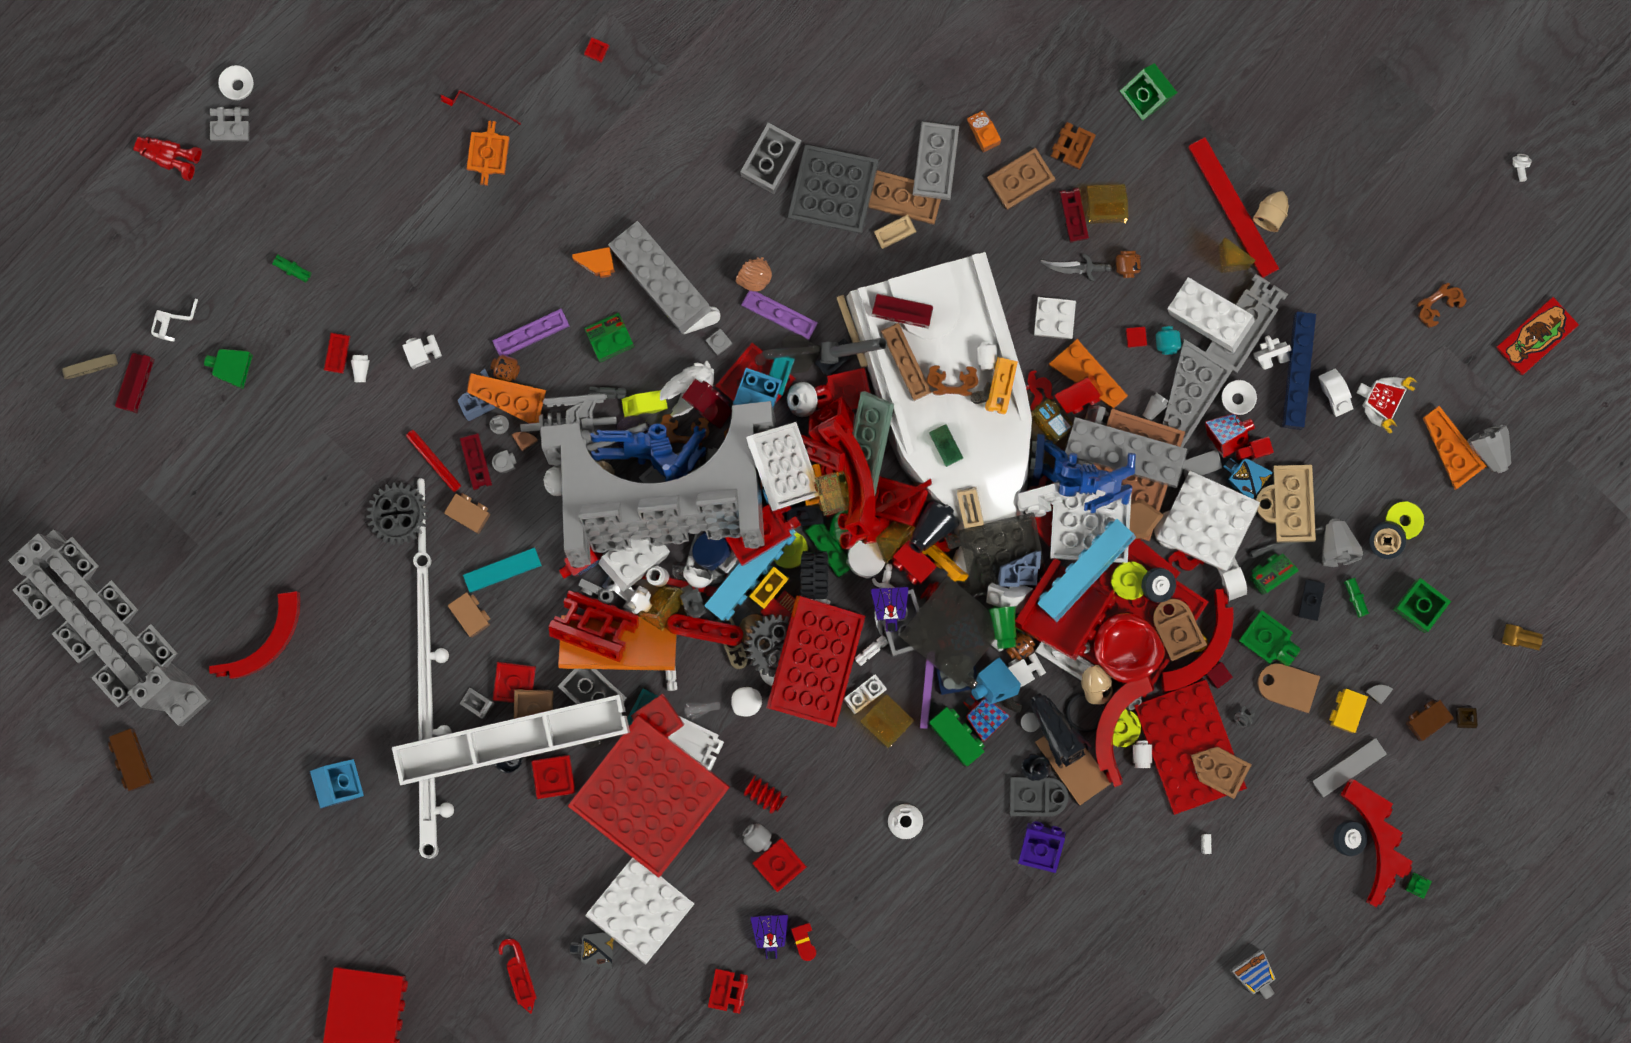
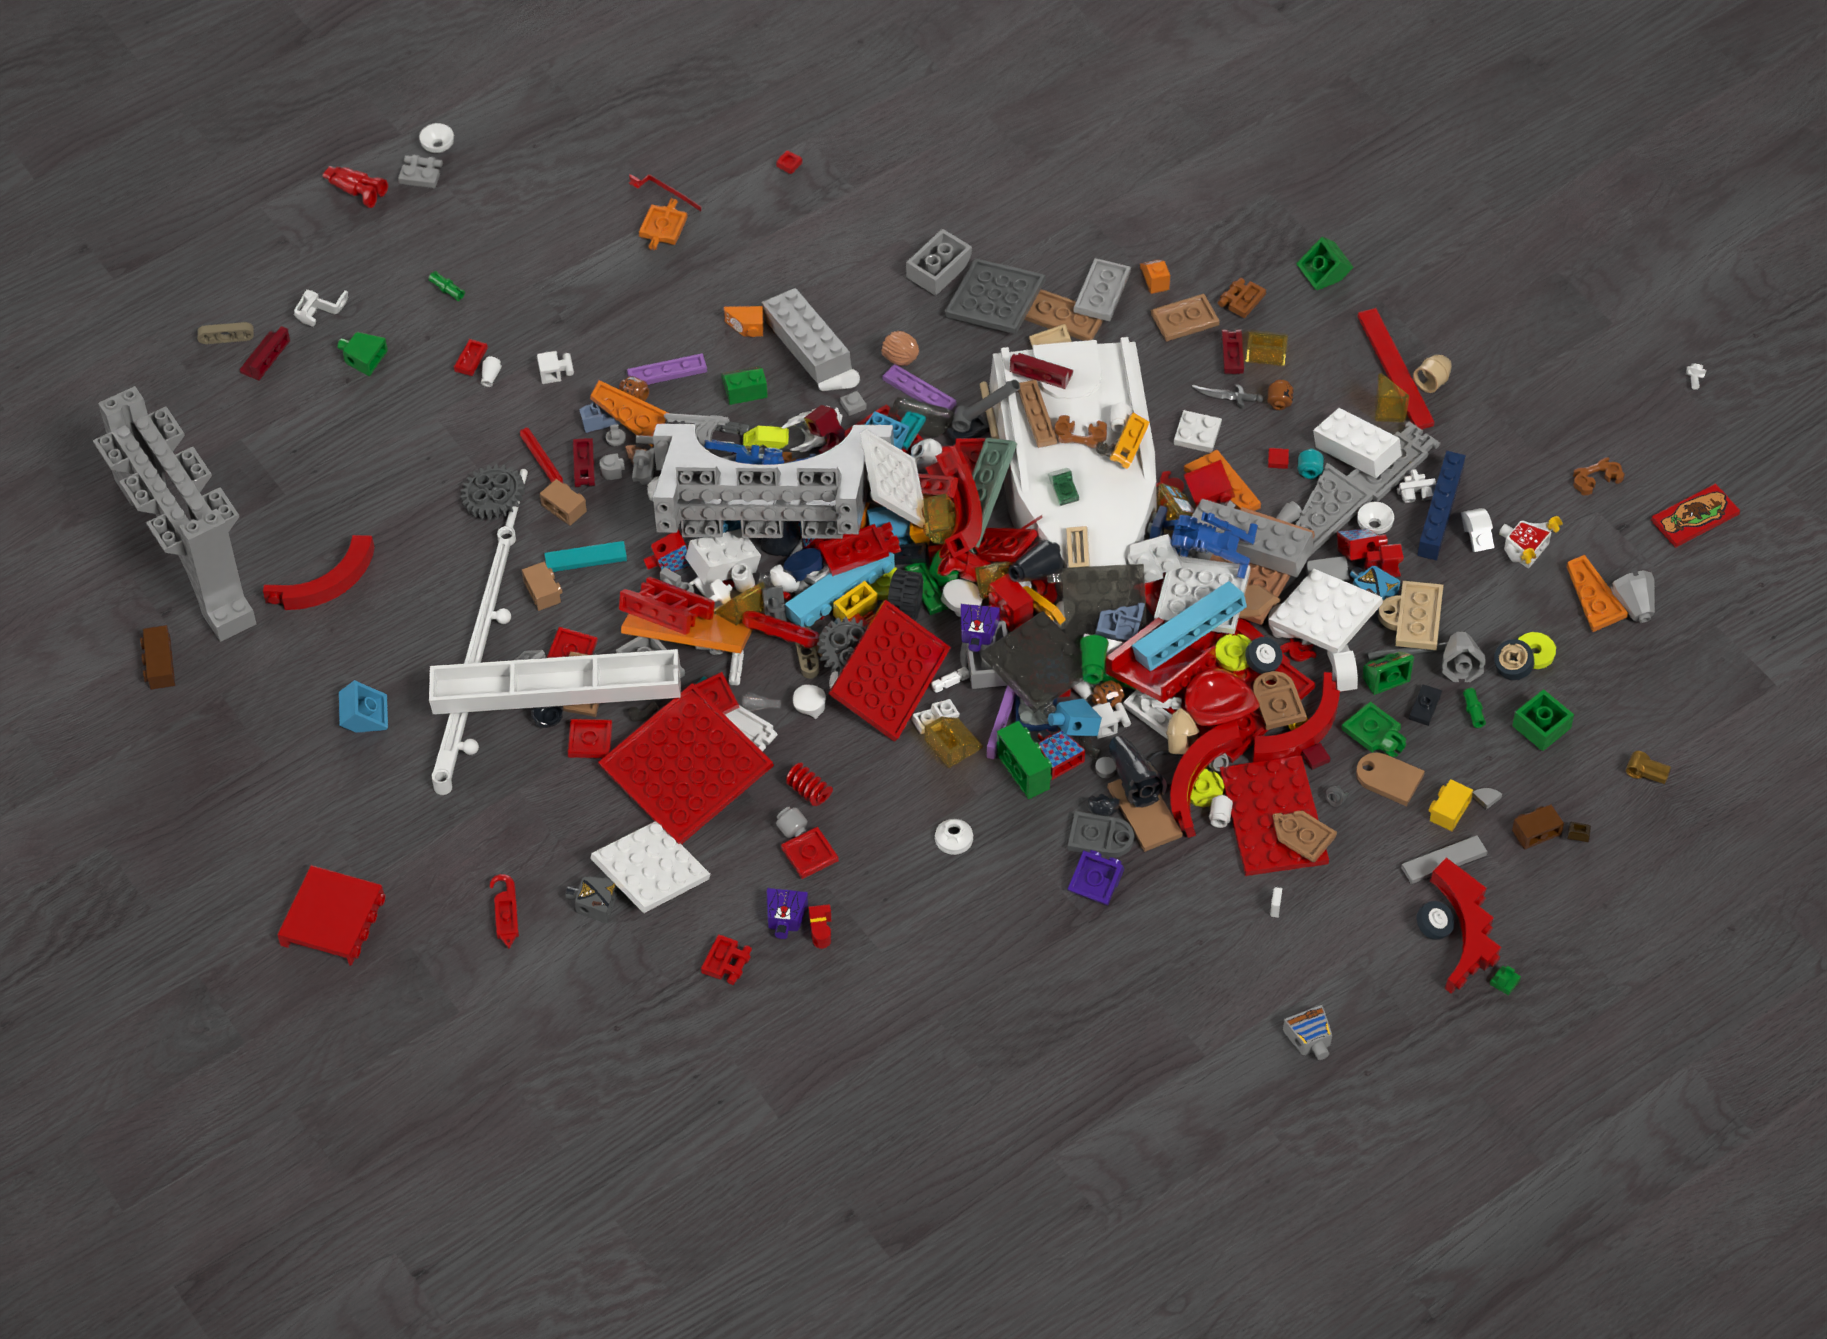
camera: 10 degrees right, 30 degrees down
(534, 459) = (643, 466): none -> light grey hips

